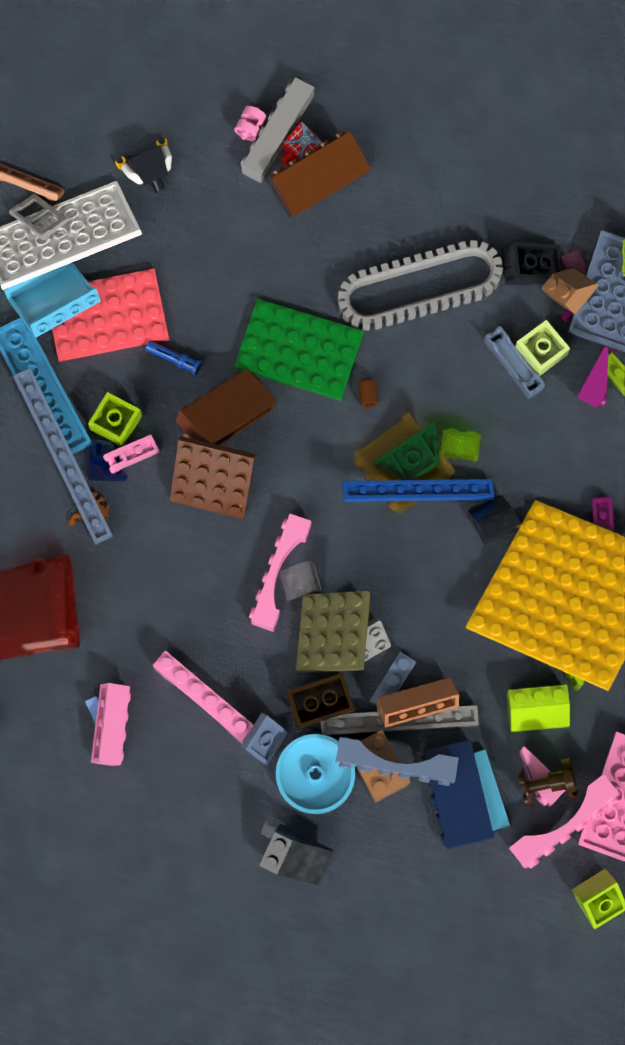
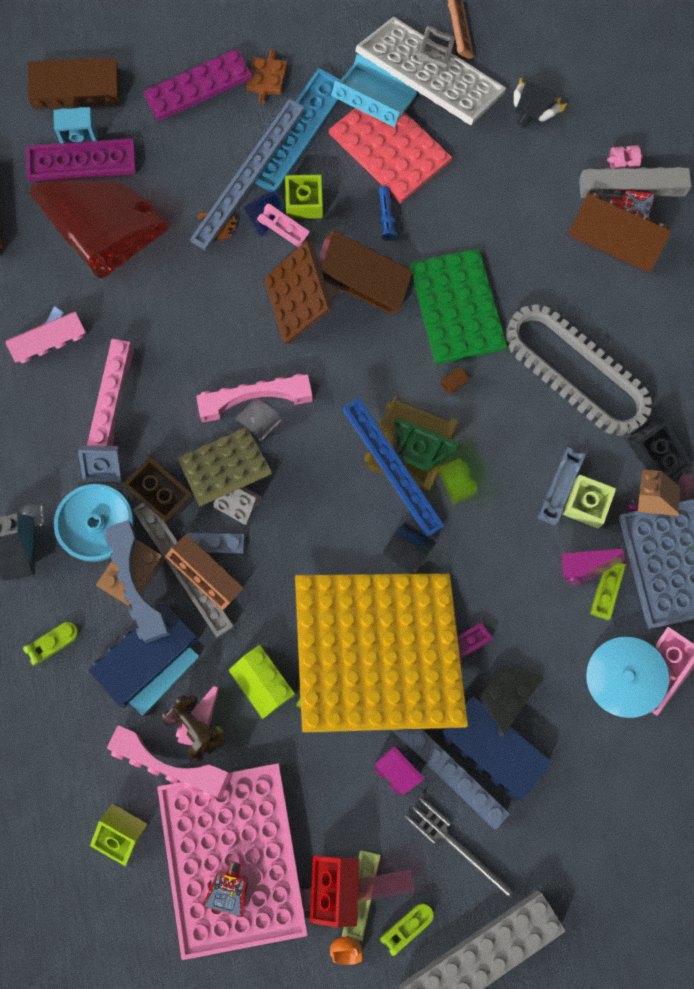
camera: 55 degrees right, 0 degrees up
(400, 869) = (52, 642): none -> lime plate

